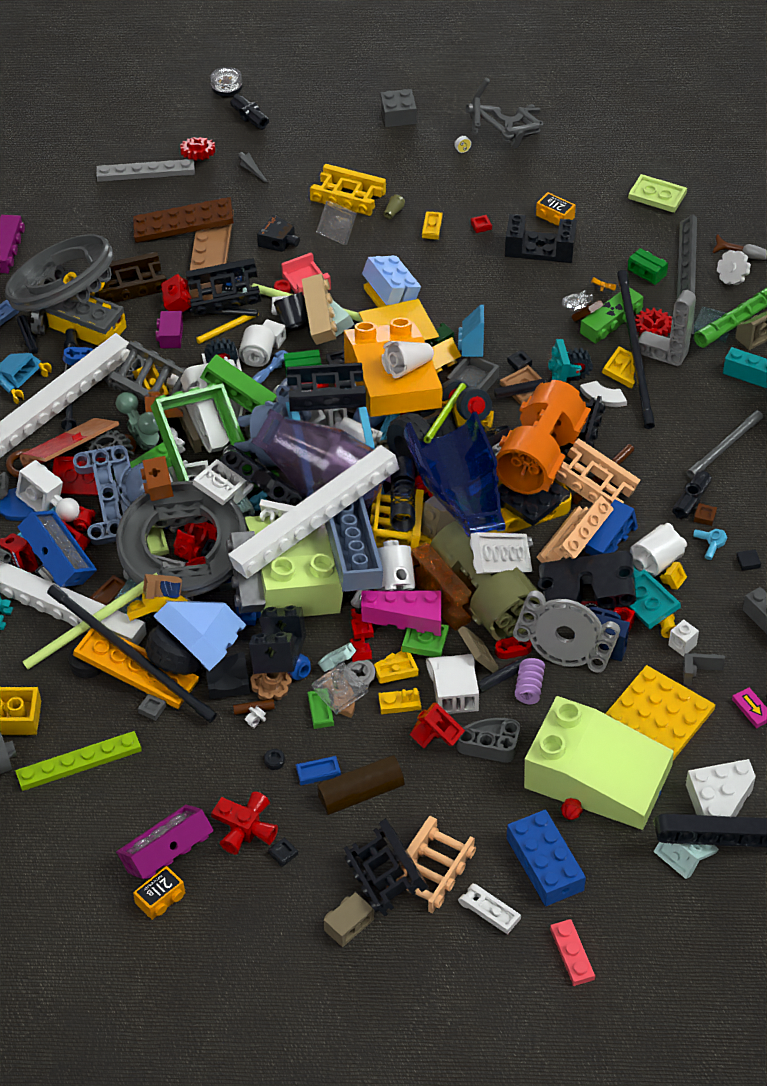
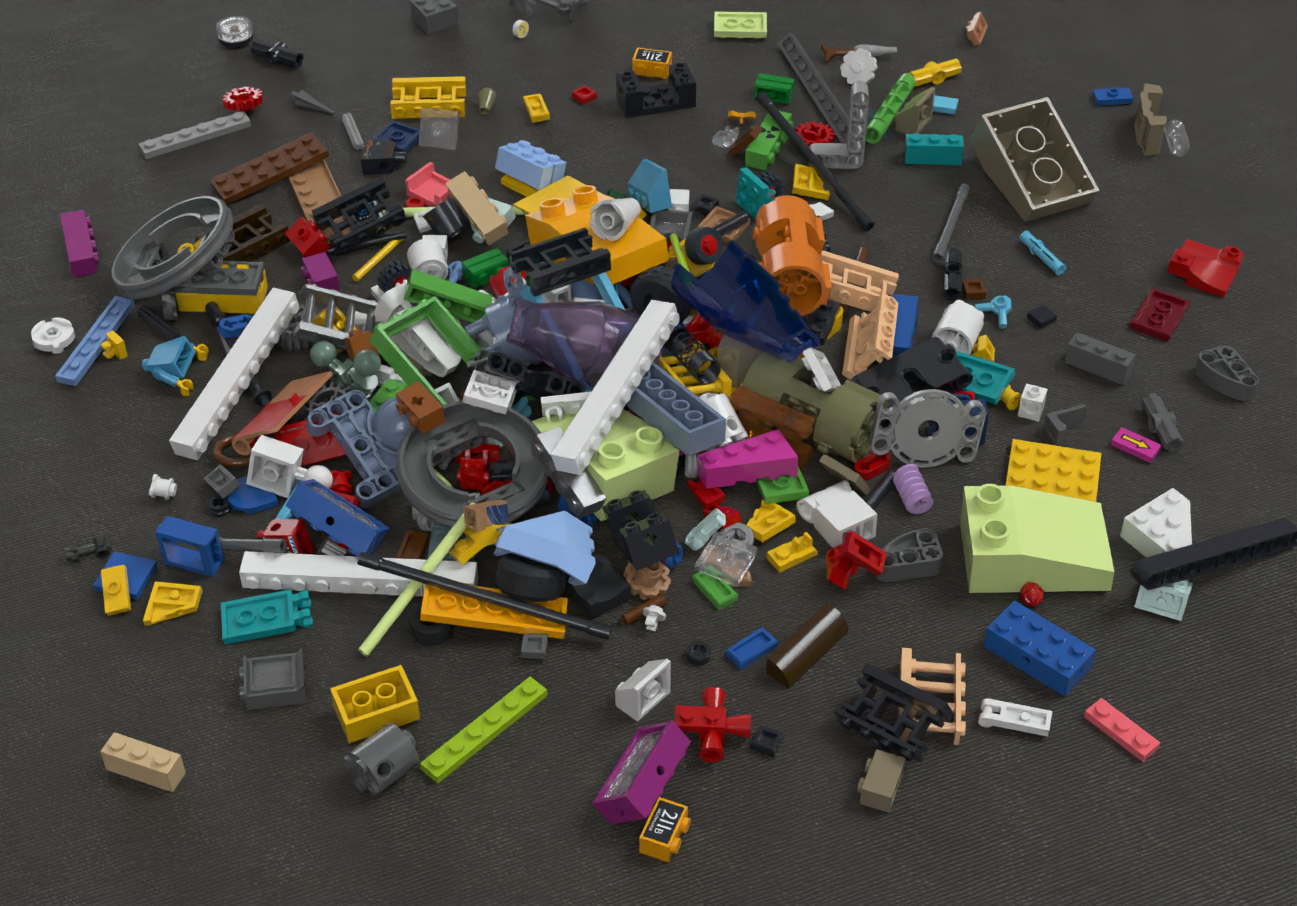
camera: 25 degrees left, 5 degrees down
(211, 774) = (644, 688): none -> white slope
(270, 202) = (352, 131): none -> light grey axle
(303, 219) = (401, 134): none -> dark blue plate
(497, 352) = (679, 200): none -> white brick

